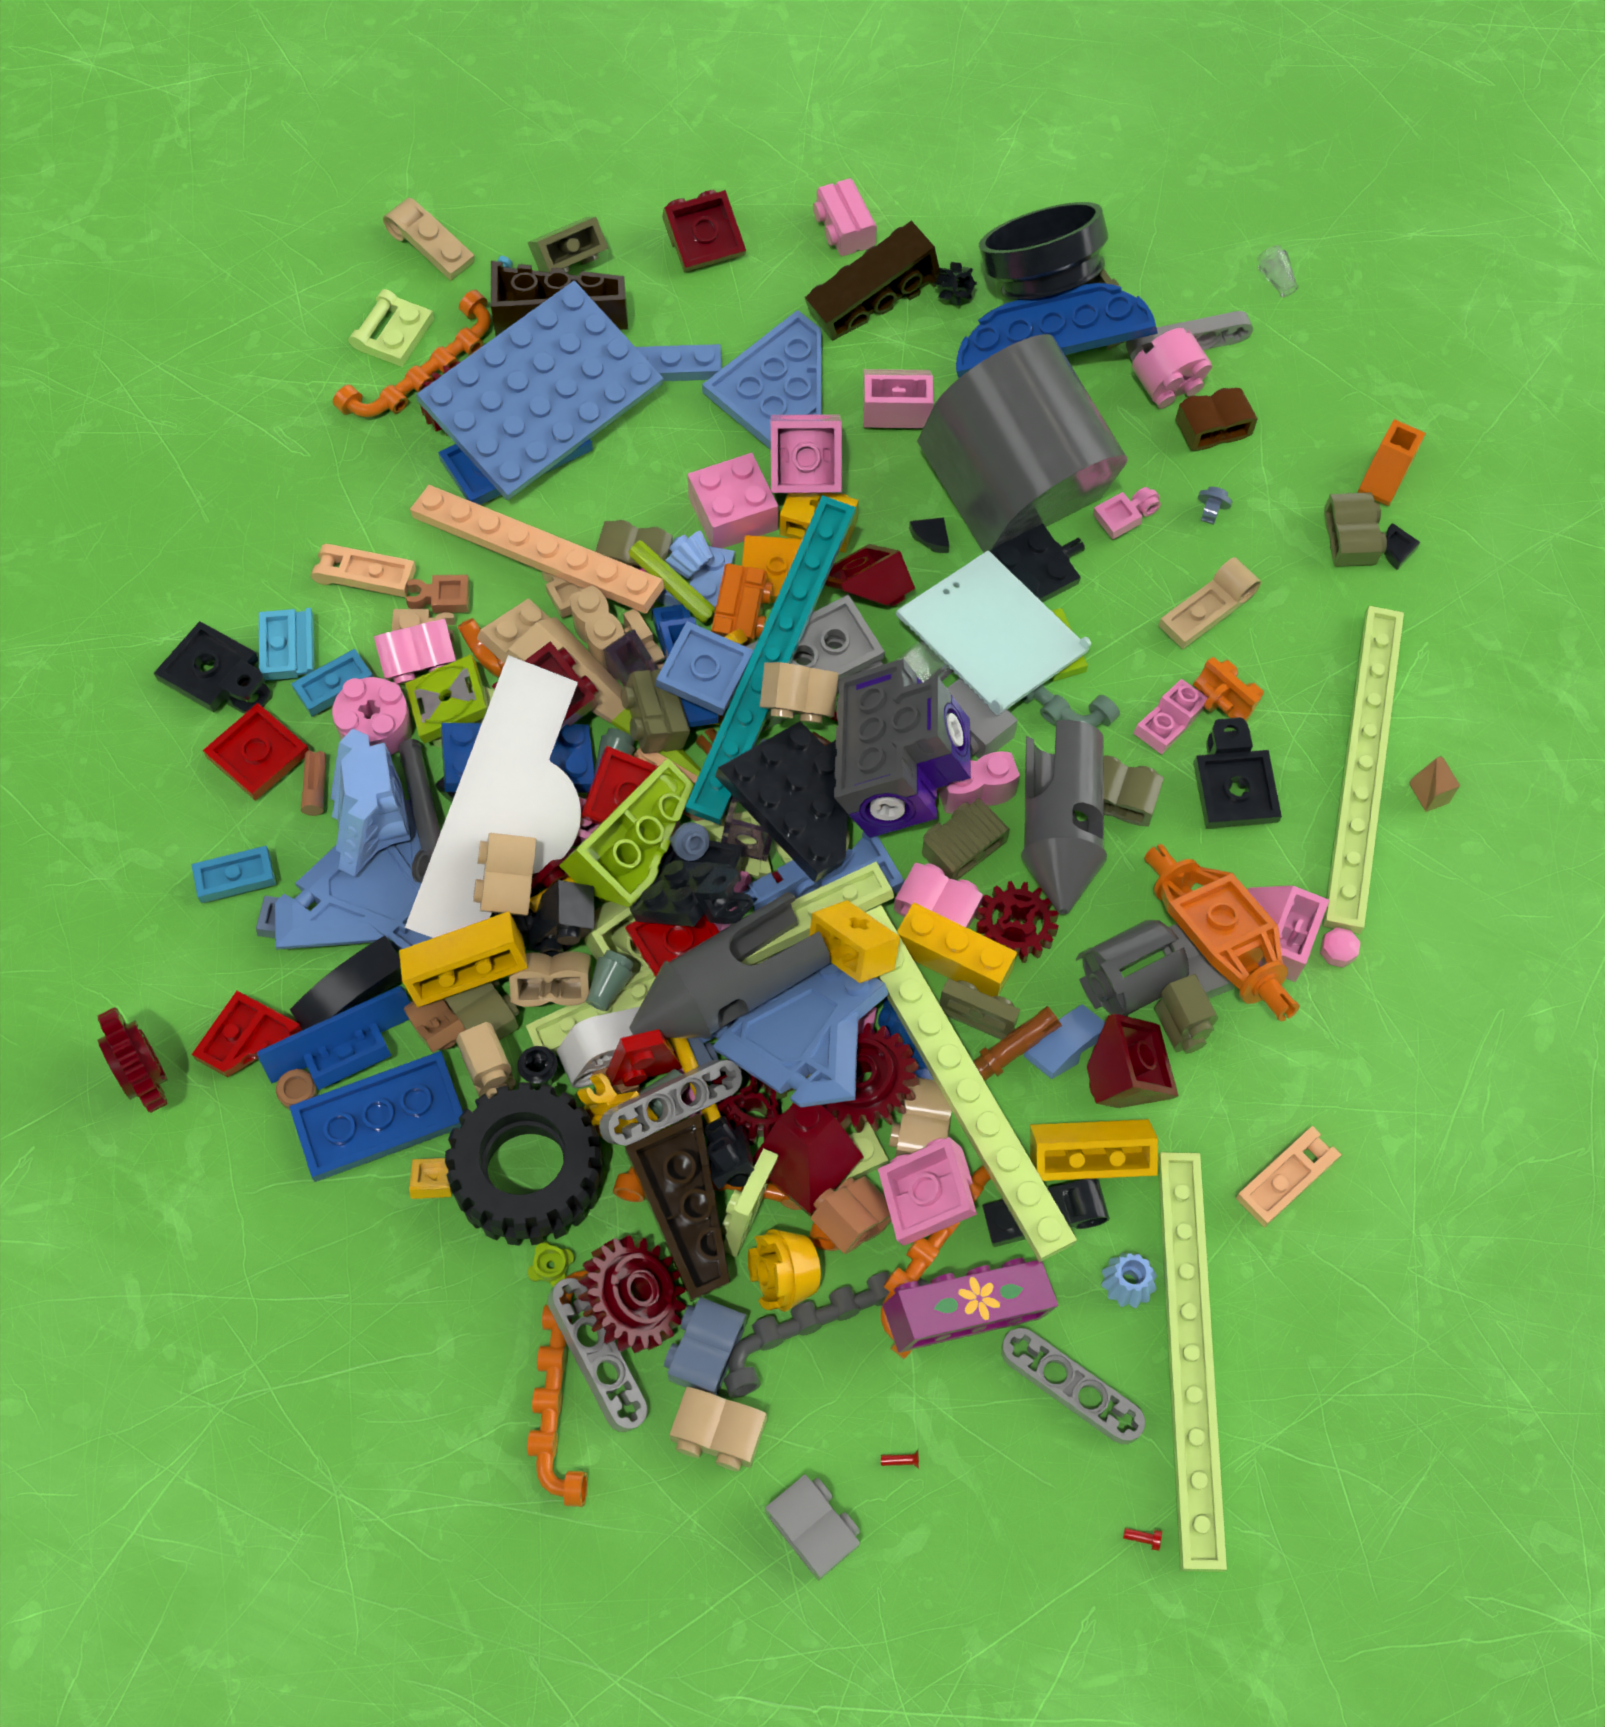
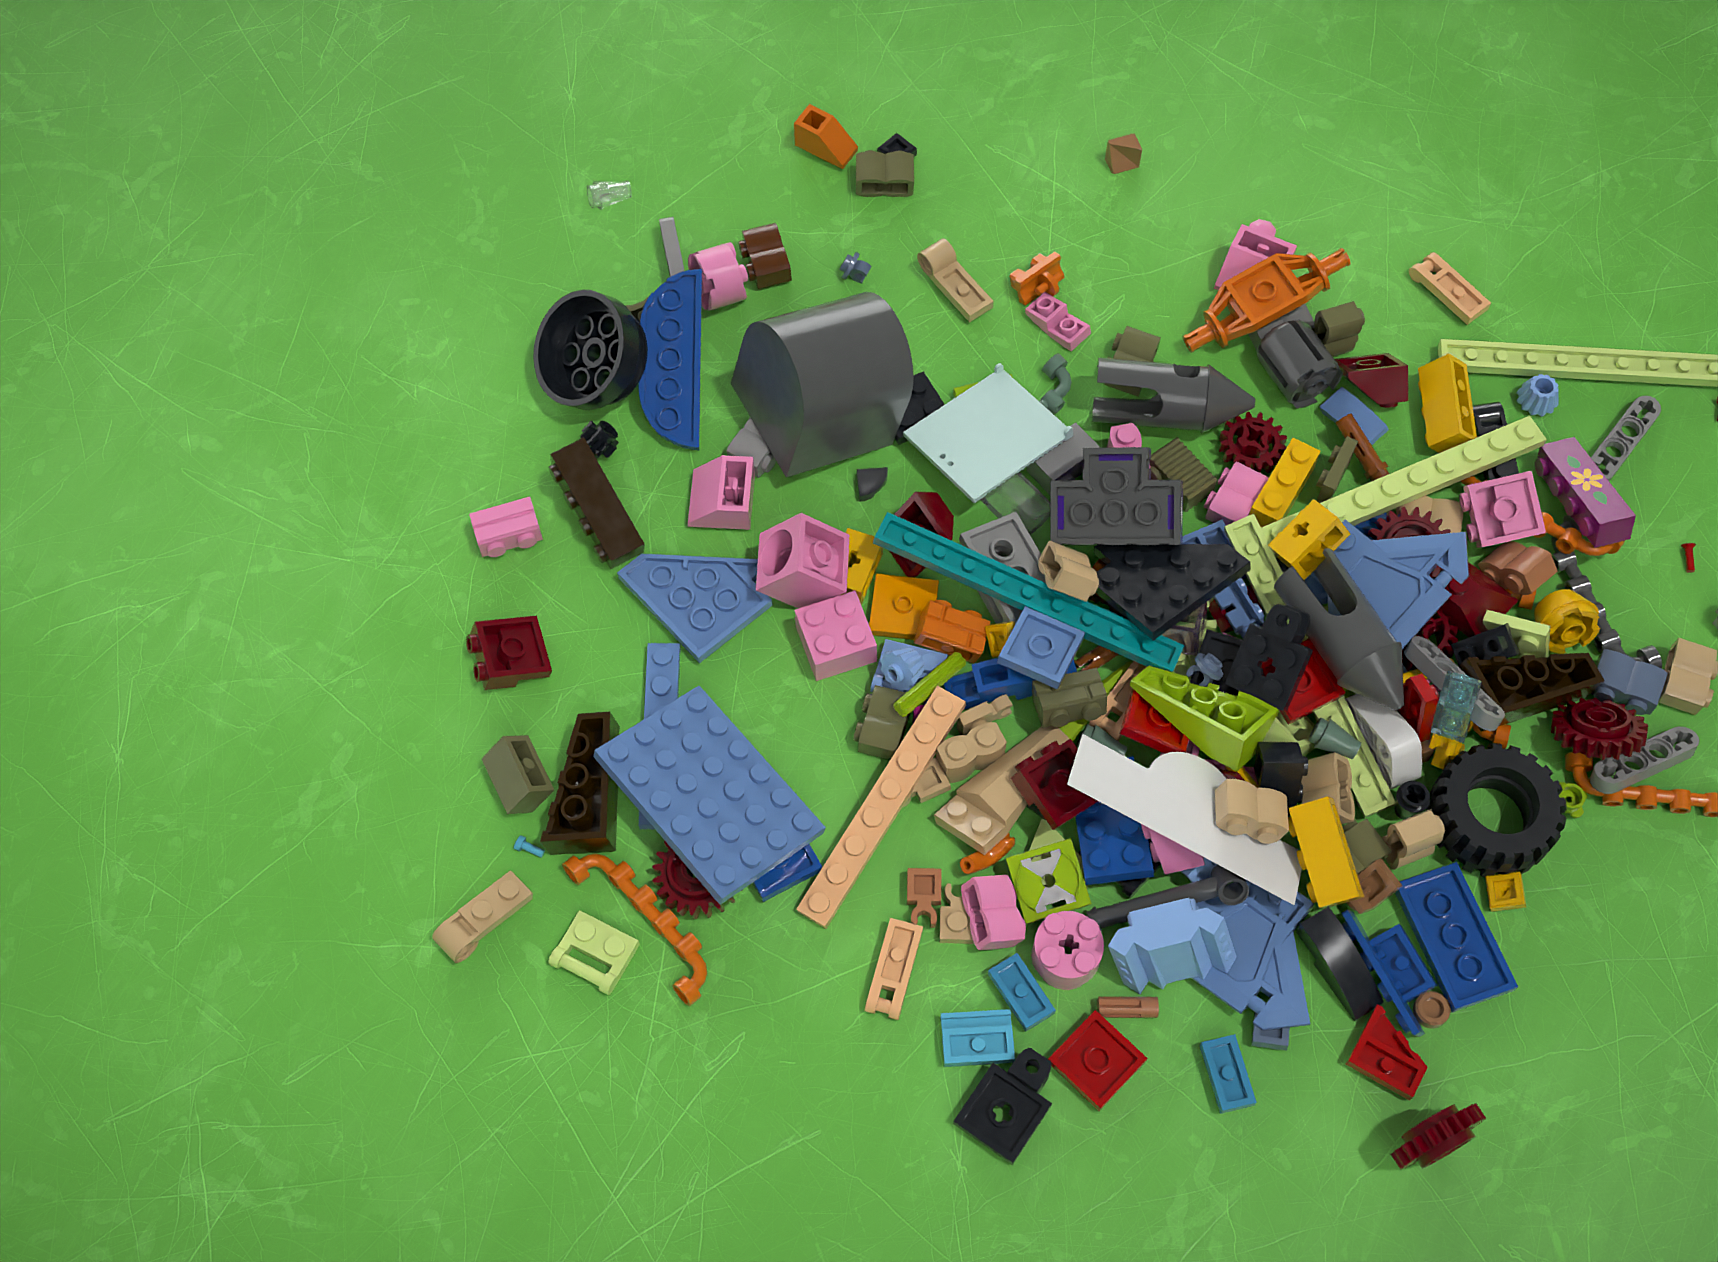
camera: 85 degrees left, 0 degrees up
(624, 1081) = (1455, 706): none -> clear light blue slope
(626, 656) = (1016, 720): slope -> none
(1233, 761) = (1107, 281): black plate -> none
(1364, 770) = (1103, 196): yellowish green plate -> none

